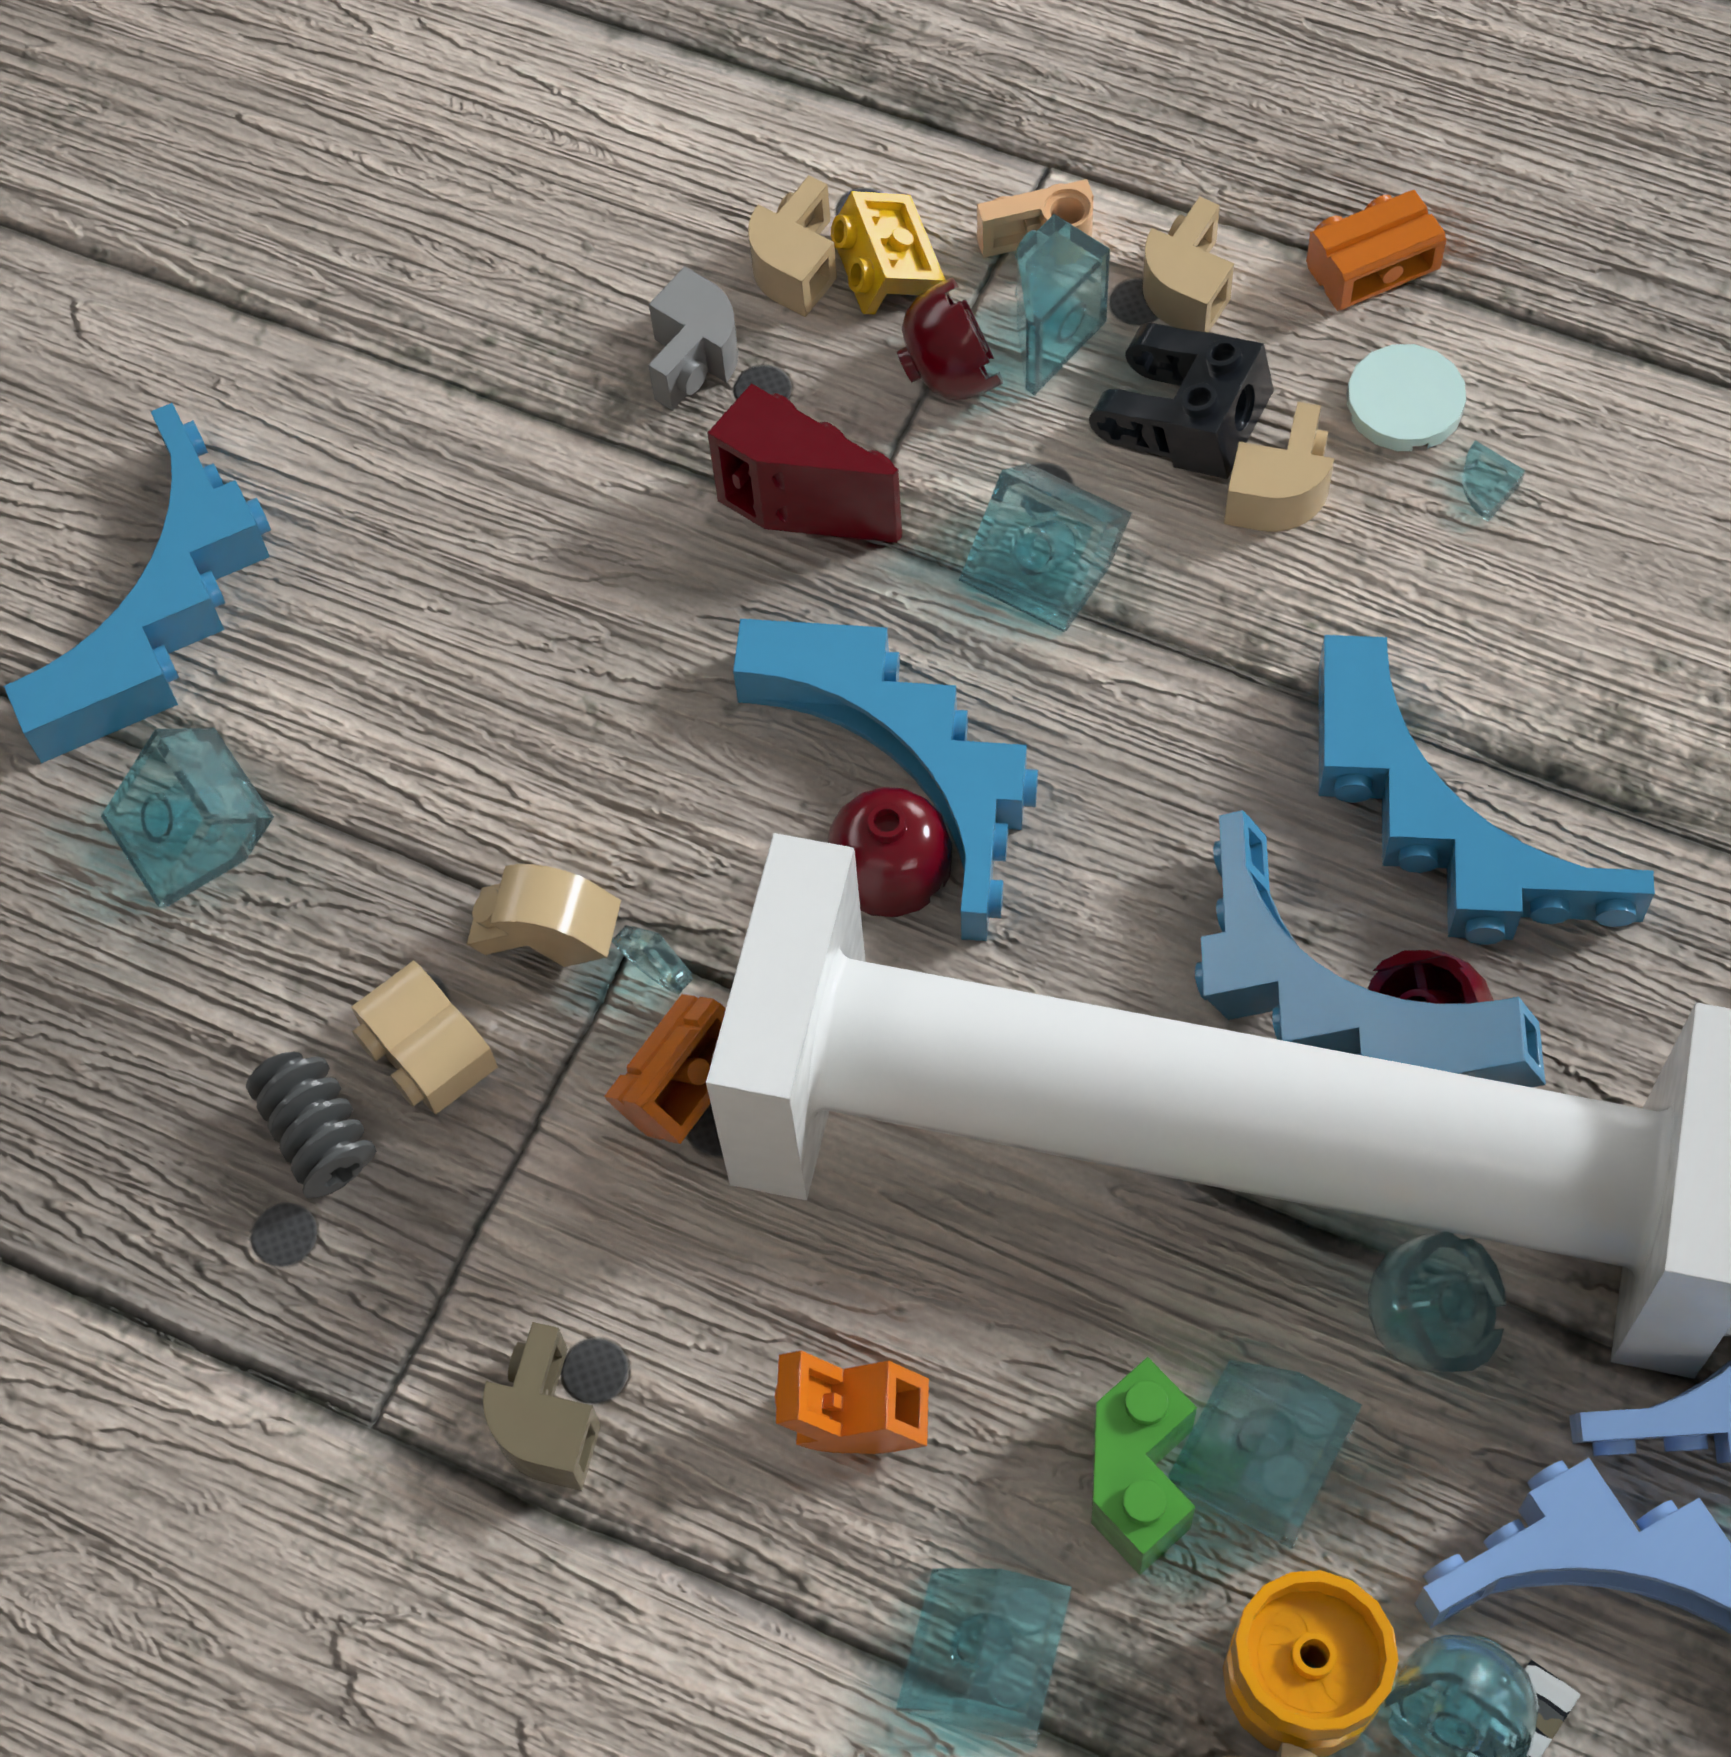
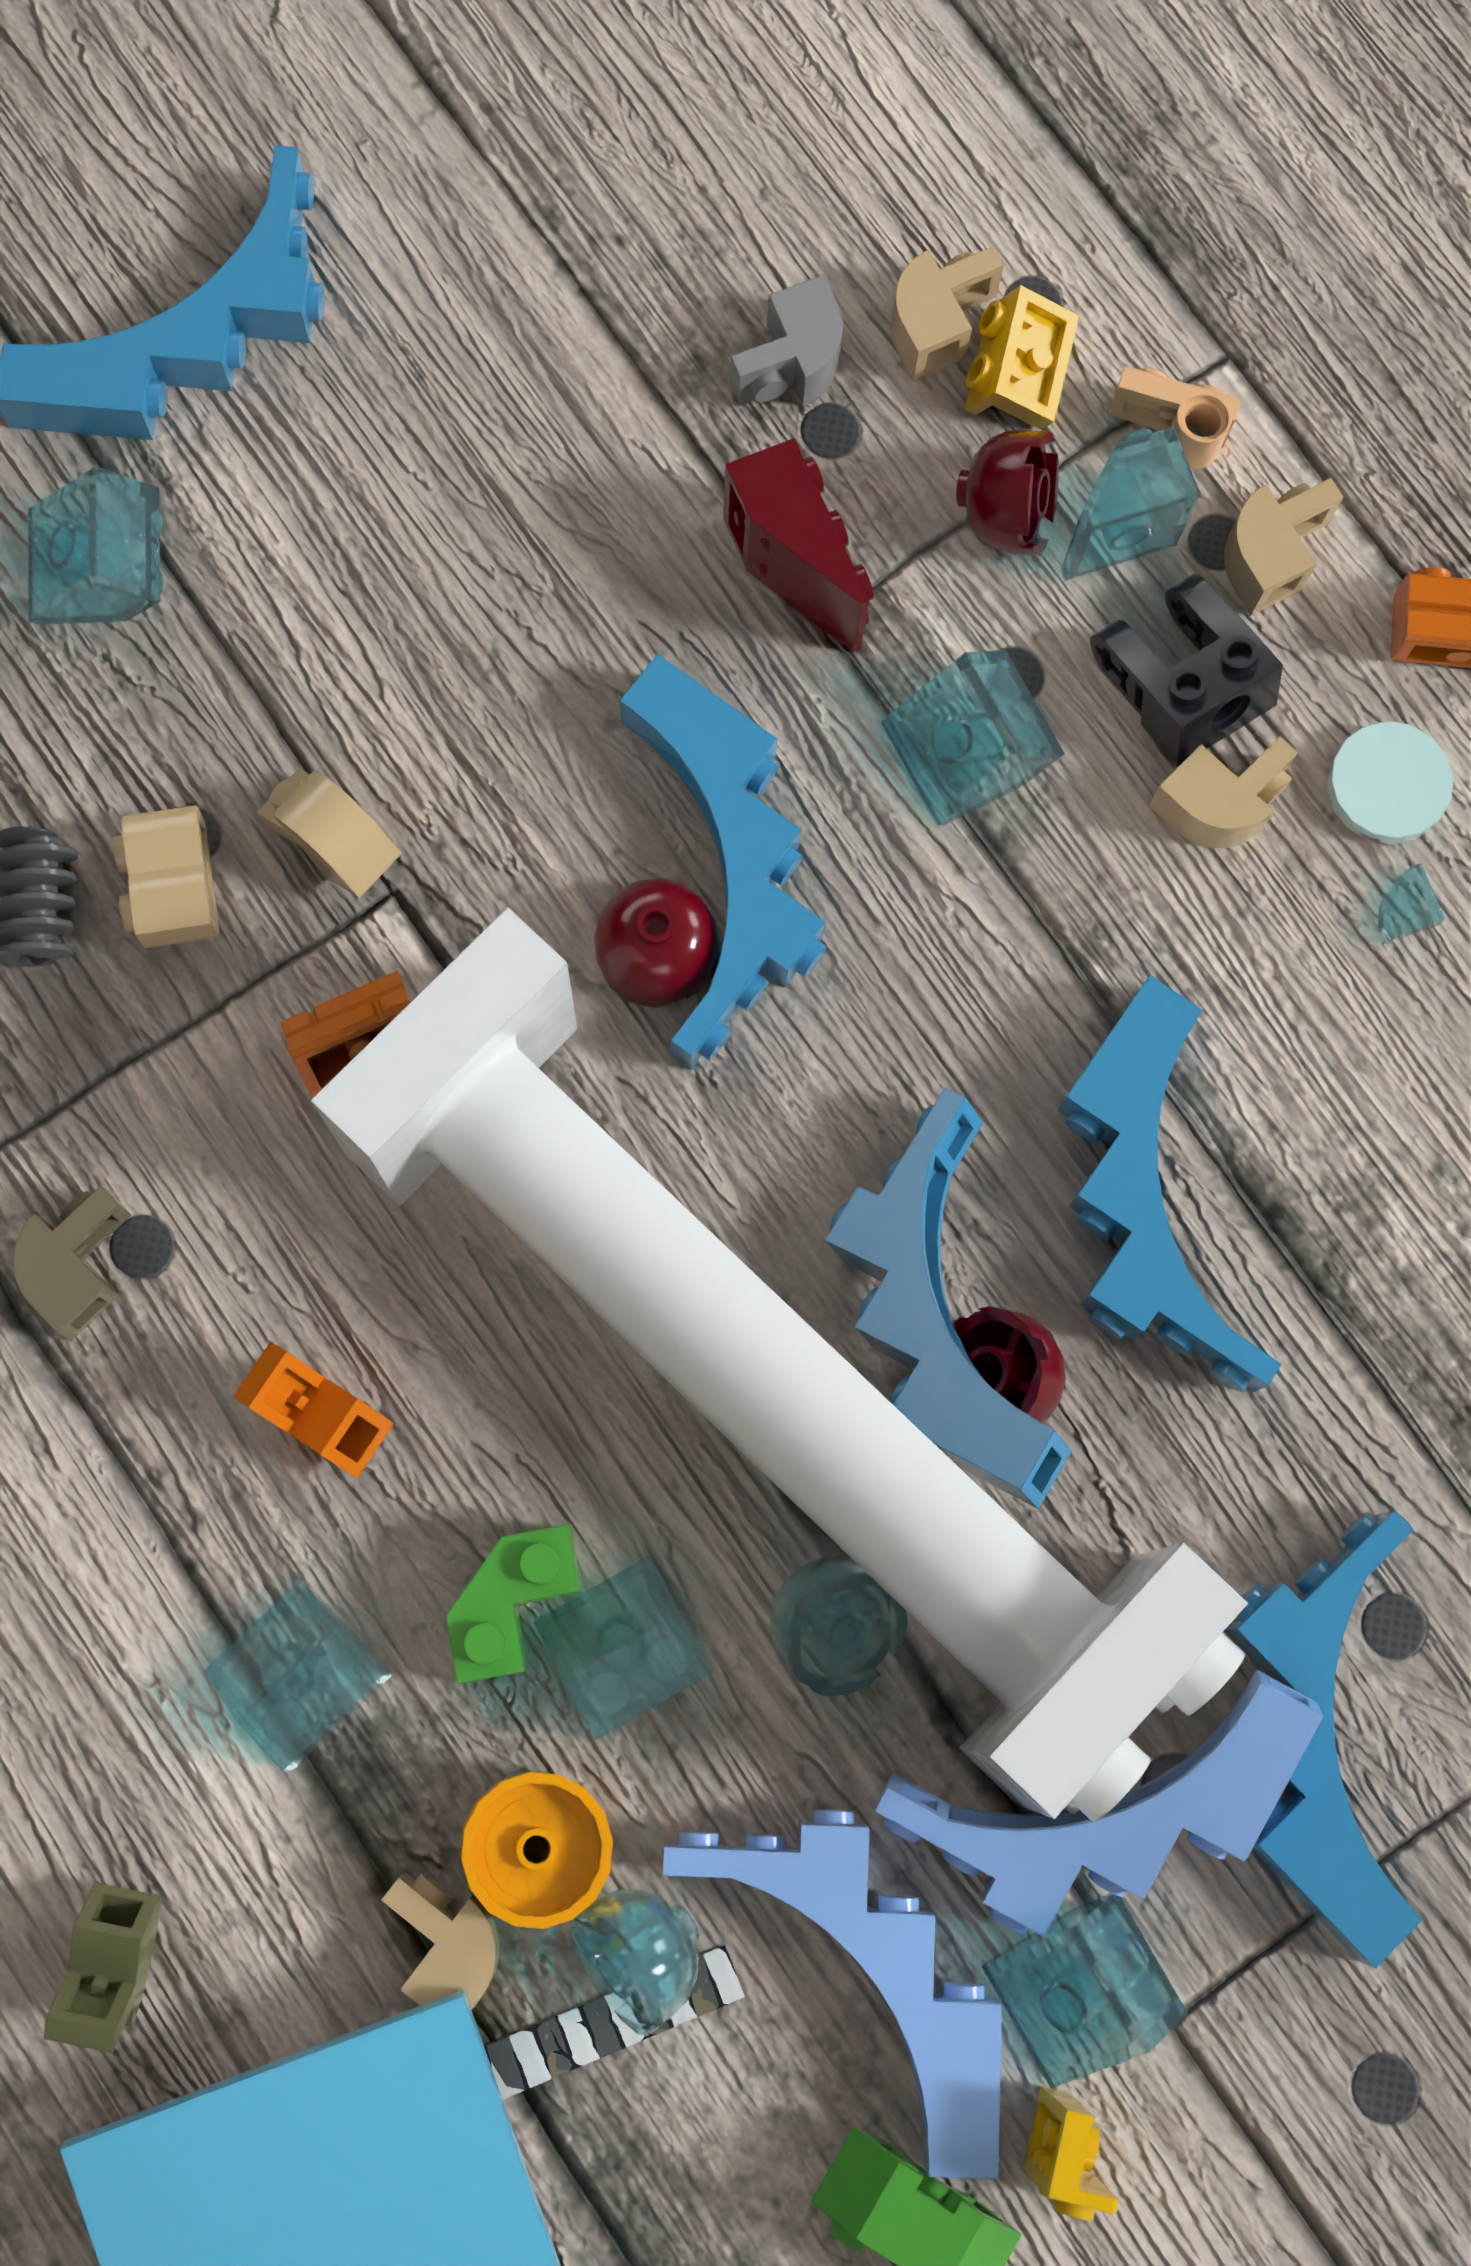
camera: 20 degrees right, 15 degrees up
(653, 957) = (401, 919): clear light blue tile -> none

